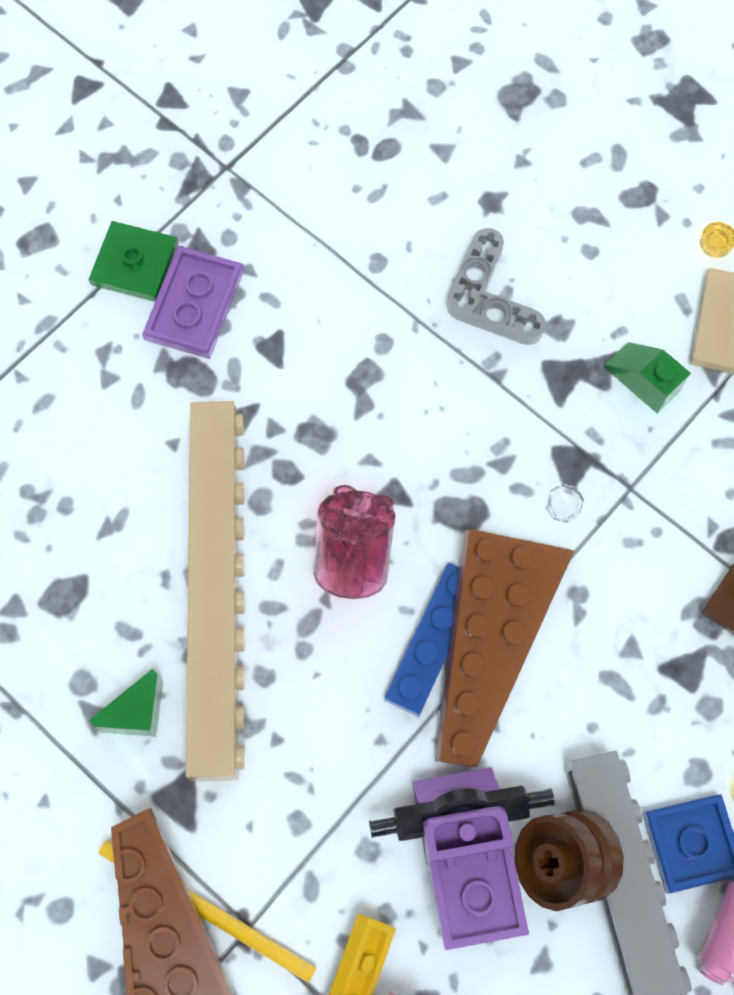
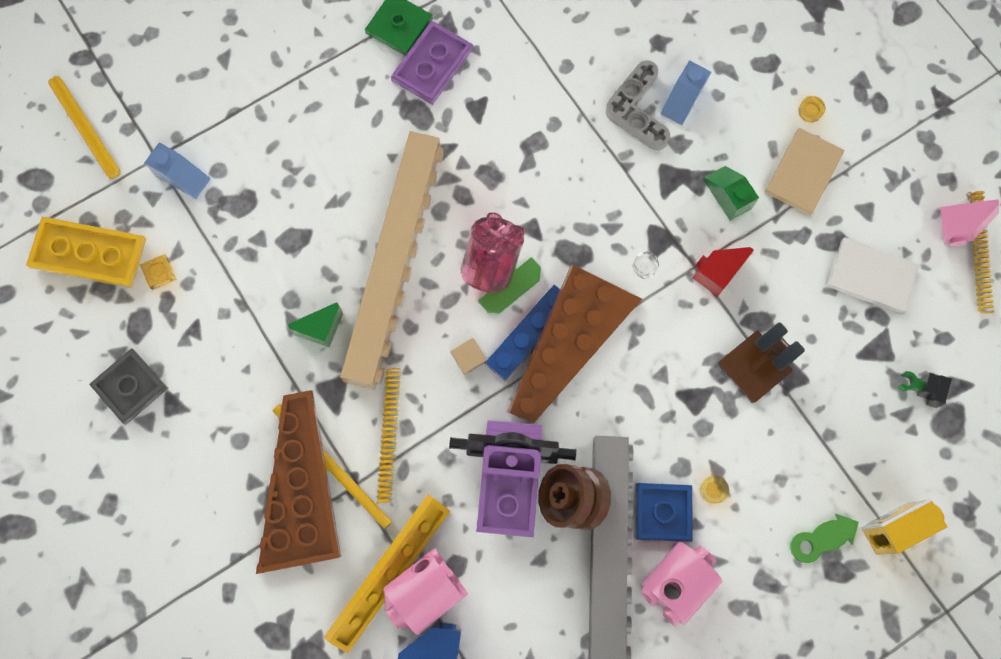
camera: 15 degrees right, 5 degrees up
(276, 847) = (385, 444): none -> yellow piece
(358, 695) = (468, 356): none -> tan tile
(405, 564) = (523, 280): none -> bright green piece
(548, 258) = (686, 92): none -> medium blue slope
(667, 481) = (720, 268): none -> red slope

